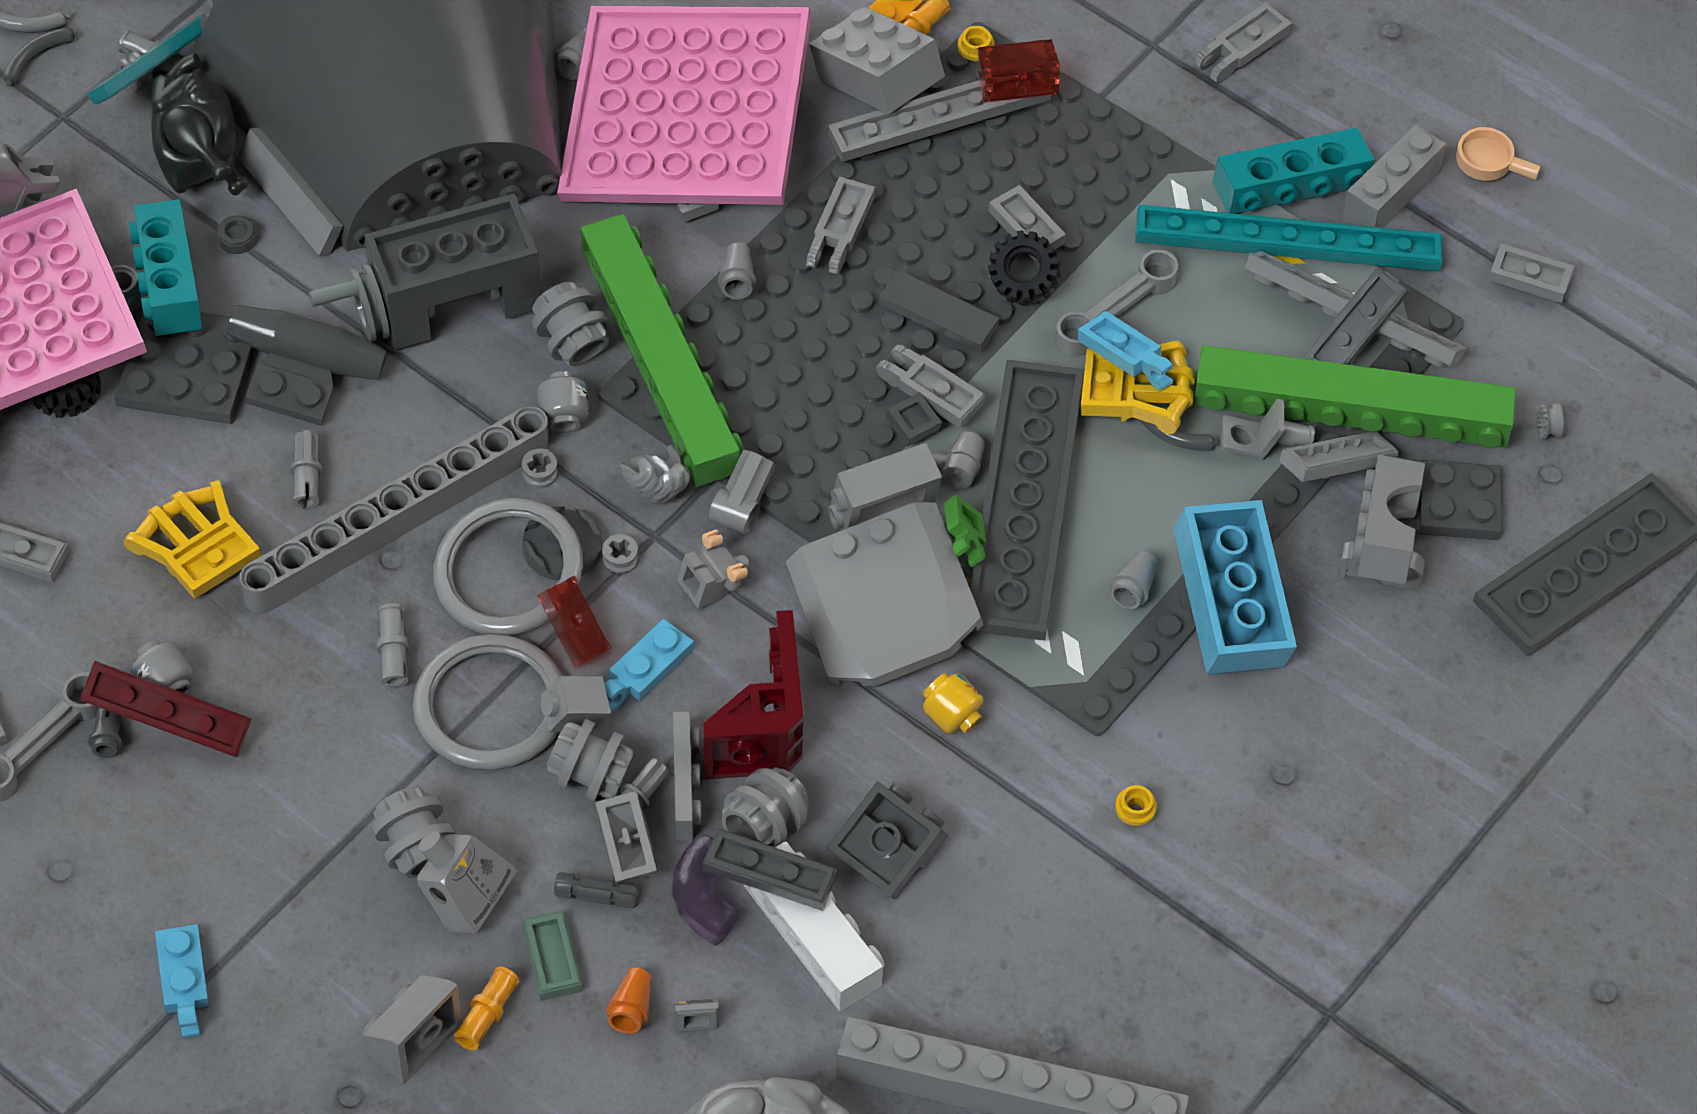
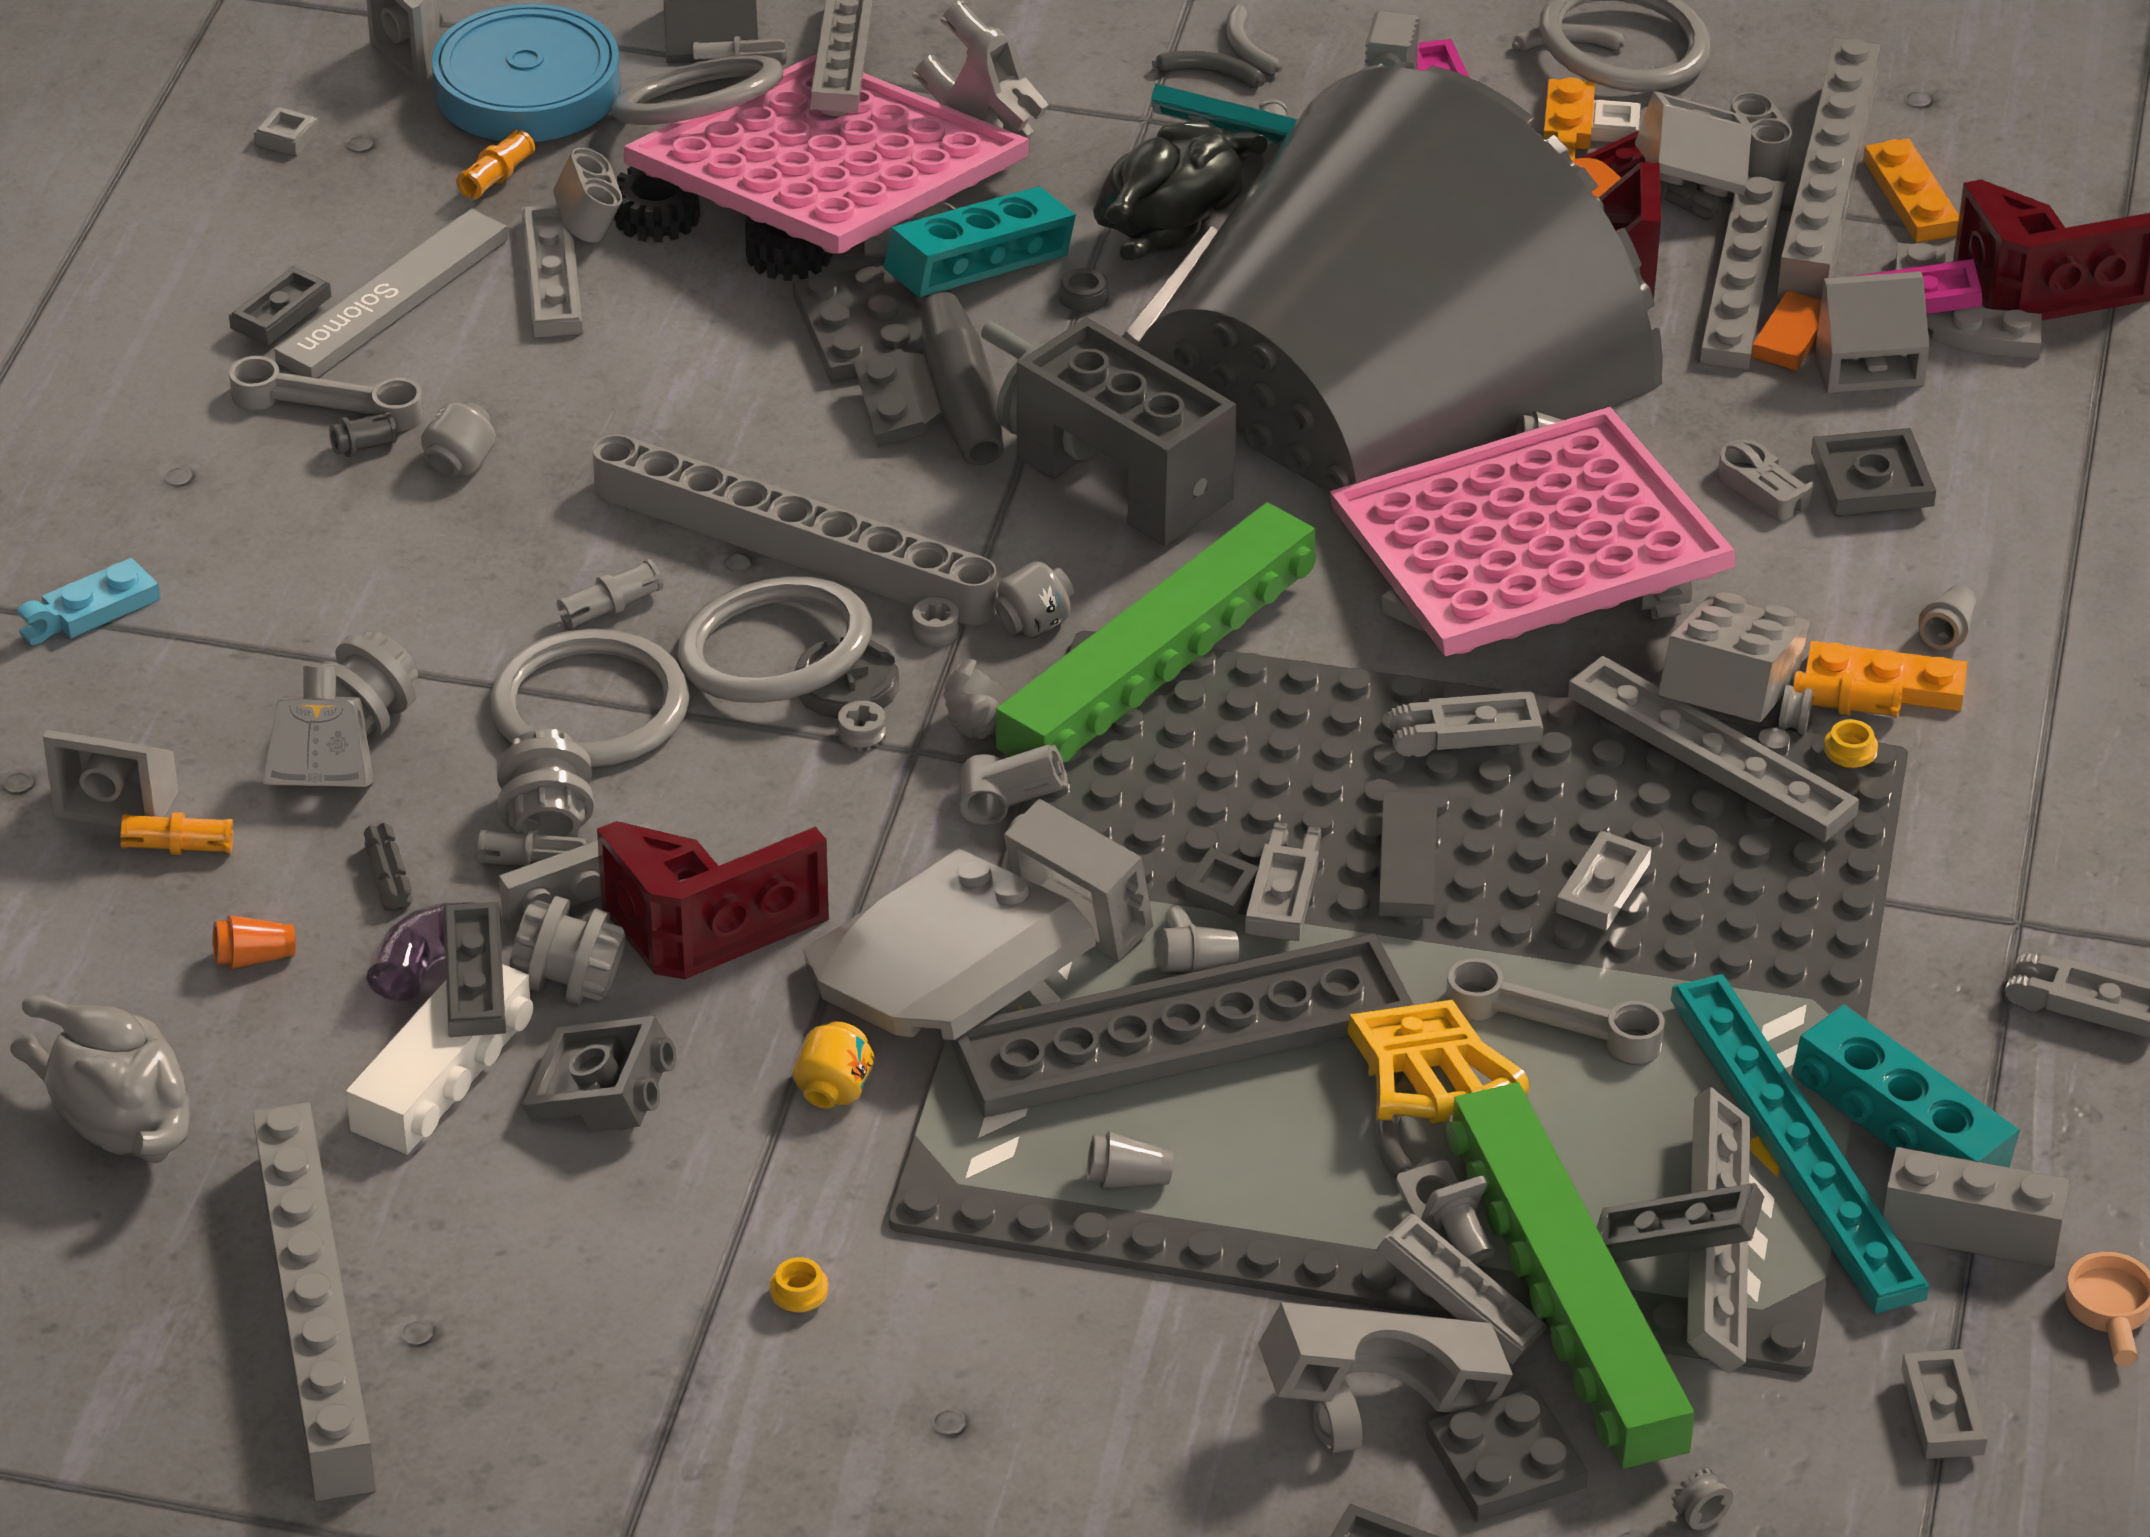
camera: 65 degrees right, 15 degrees down
(166, 709) = (405, 454): dark red tile -> none
(205, 558) = (647, 418): yellow plate -> none
(306, 469) = (799, 447): light grey axle -> none
(552, 955) = (282, 865): sand green tile -> none
(574, 328) = (1140, 555): light grey piece -> none
(574, 621) = (724, 705): clear red hinge -> none
(574, 701) = (616, 746): light grey brick -> none
(627, 837) = (460, 854): light grey slope -> none
(647, 663) = (718, 798): medium azure plate -> none
(696, 1015) = (268, 1002): light grey slope -> none
(712, 572) = (882, 801): light grey piece -> none
(737, 272) = (1323, 662): light grey cone -> none
(967, 528) = (1077, 968): bright green plate -> none
(1019, 70) = (1815, 773): clear red hinge -> none
(1022, 245) = (1528, 910): black tyre -> none
(1126, 348) = (1460, 1017): medium azure plate -> none
(1234, 587) = (1167, 1244): medium azure brick -> none

